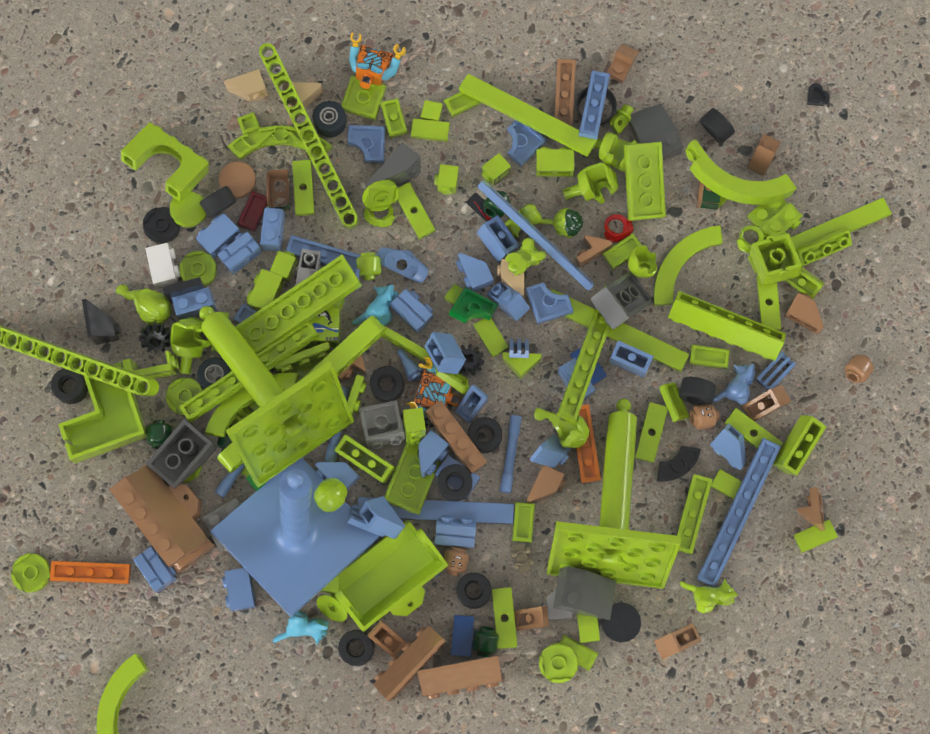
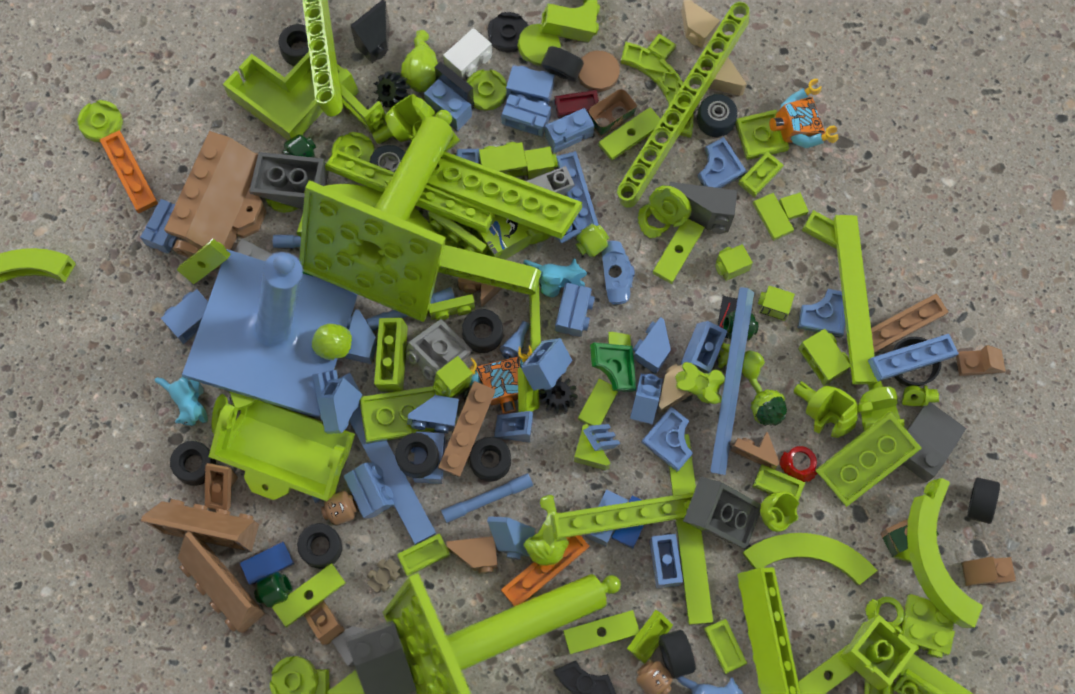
camera: 55 degrees right, 5 degrees down
(208, 553) = (203, 261): none -> lime tile

